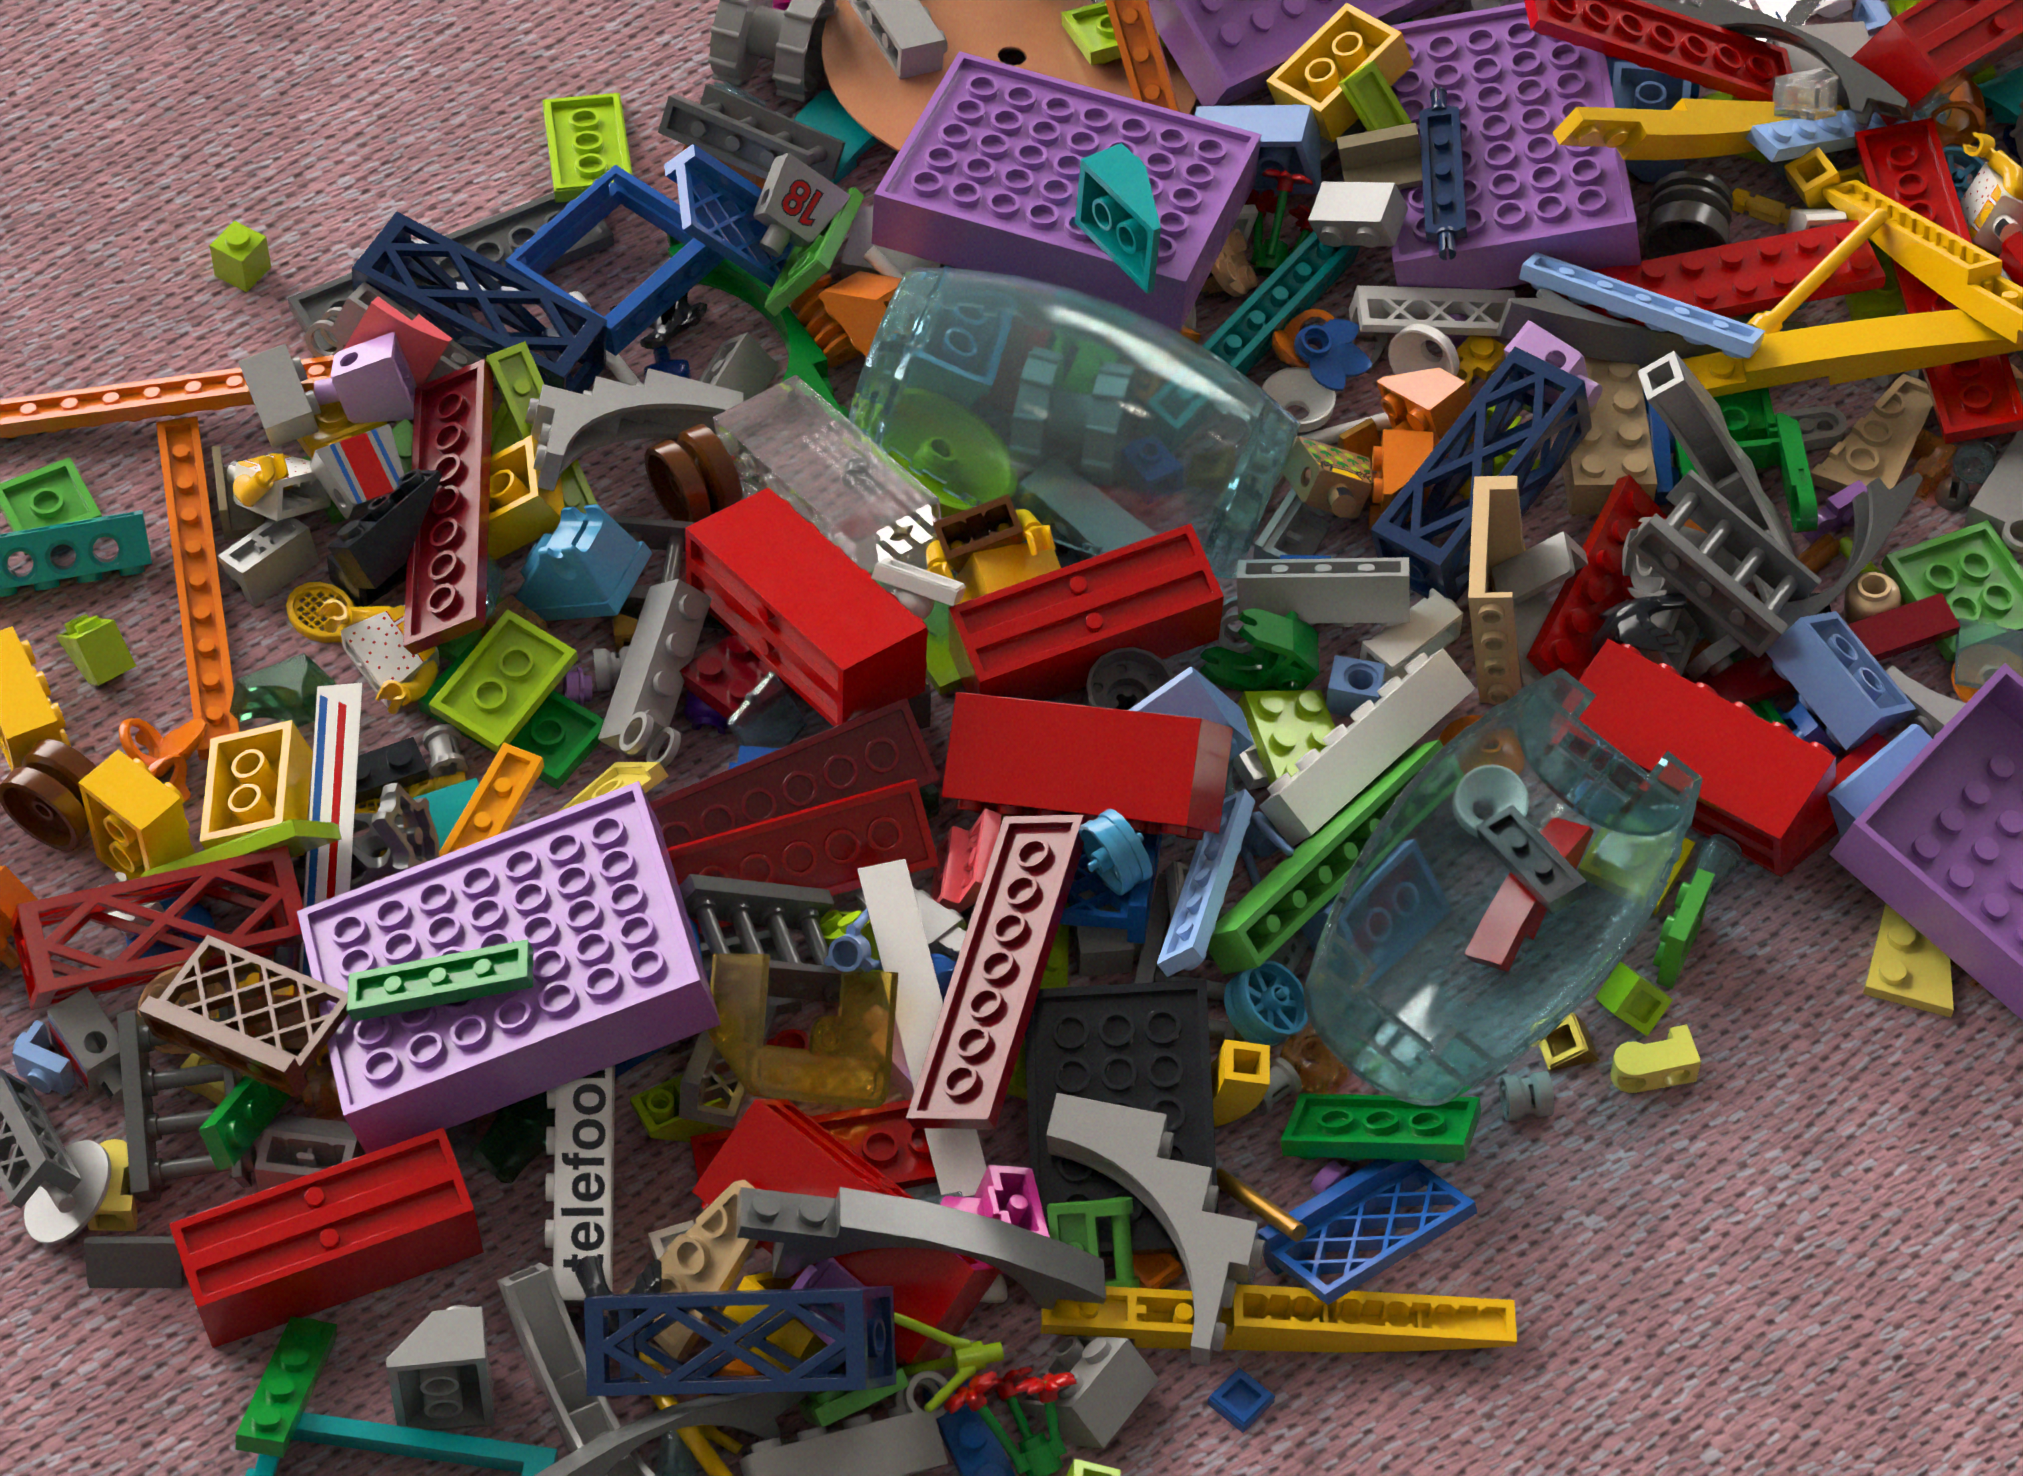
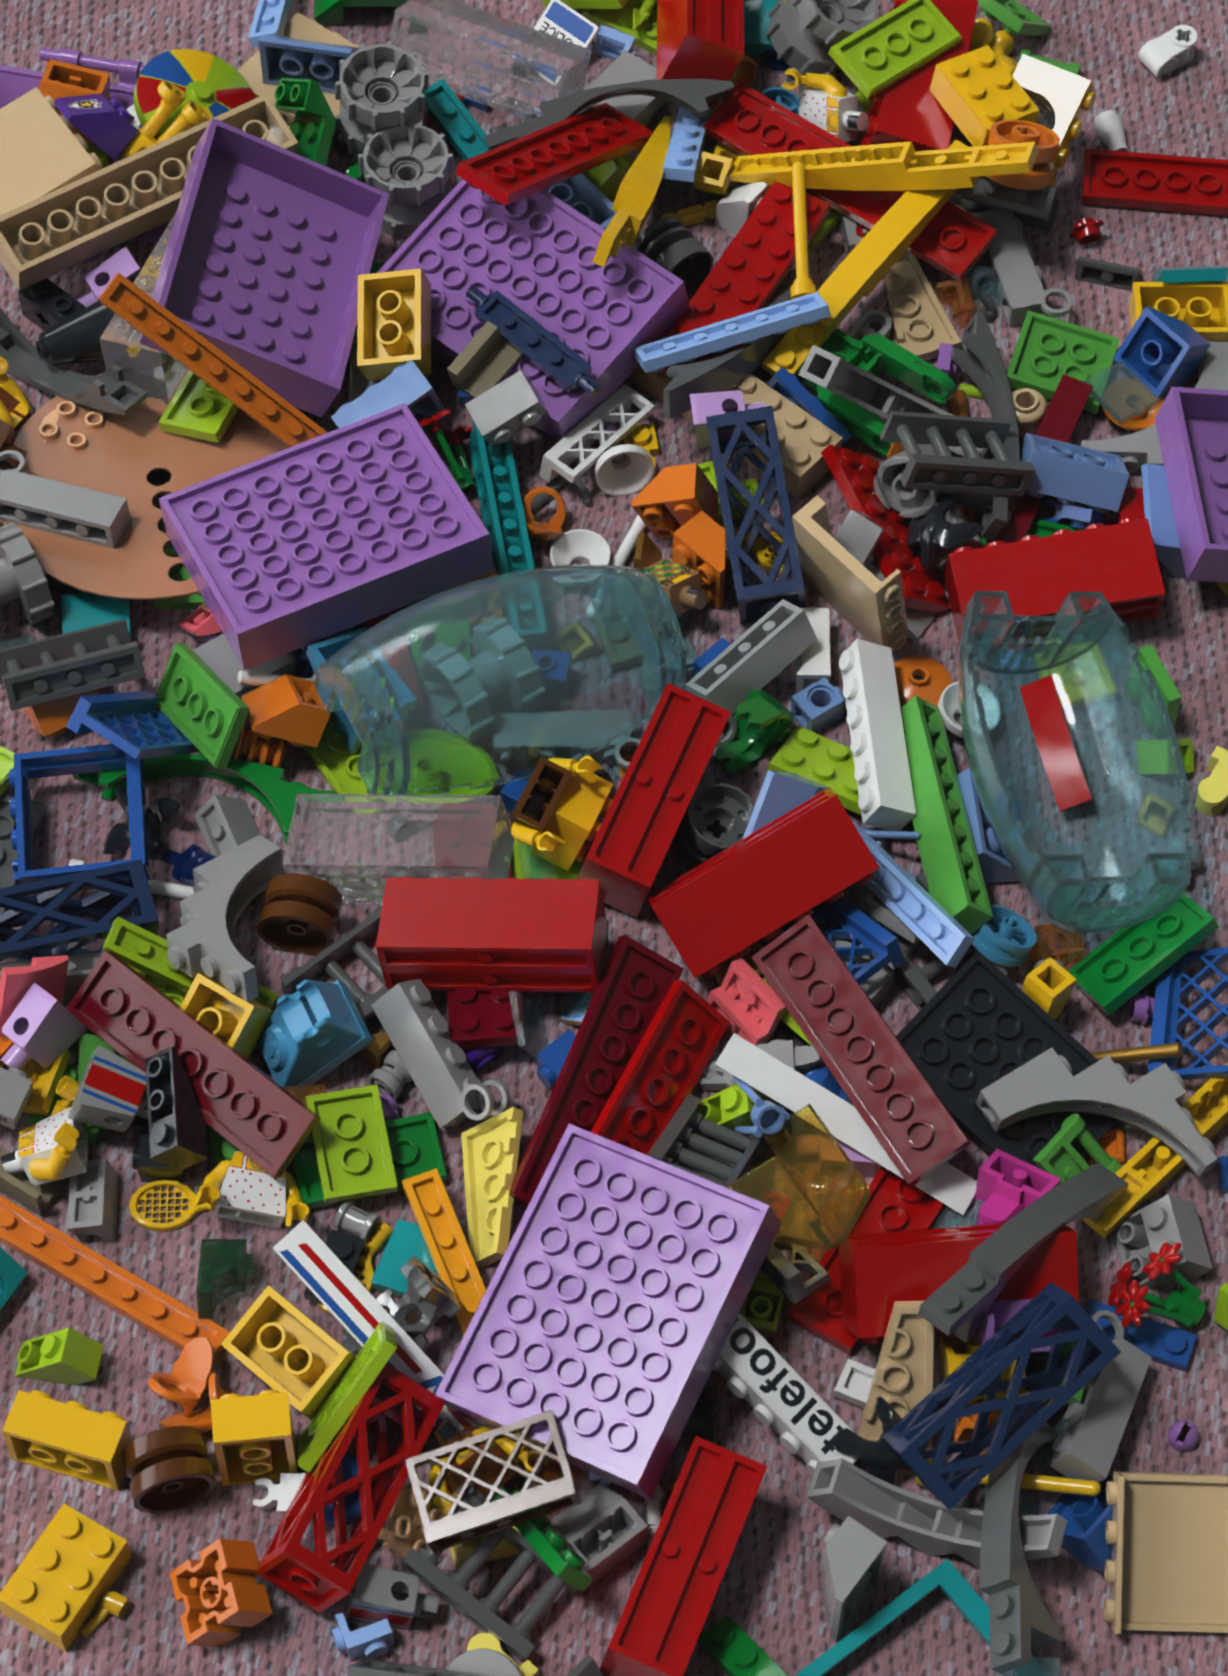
camera: 45 degrees left, 5 degrees up
(440, 980) = (603, 1350): plate -> none
(795, 204) = (162, 684): light grey torso -> none
(918, 587) = (552, 860): white tile -> none
(966, 1357) = (1104, 1290): lime plant -> none
(1115, 852) = (851, 919): dark azure wheel -> none
(1120, 212) = (422, 520): teal slope -> none
(1336, 354) = (575, 510): blue plate -> none
(1373, 98) = (444, 326): lime tile -> none
(1532, 859) = (1049, 721): black plate -> none
(1806, 95) = (666, 122): clear slope -> none

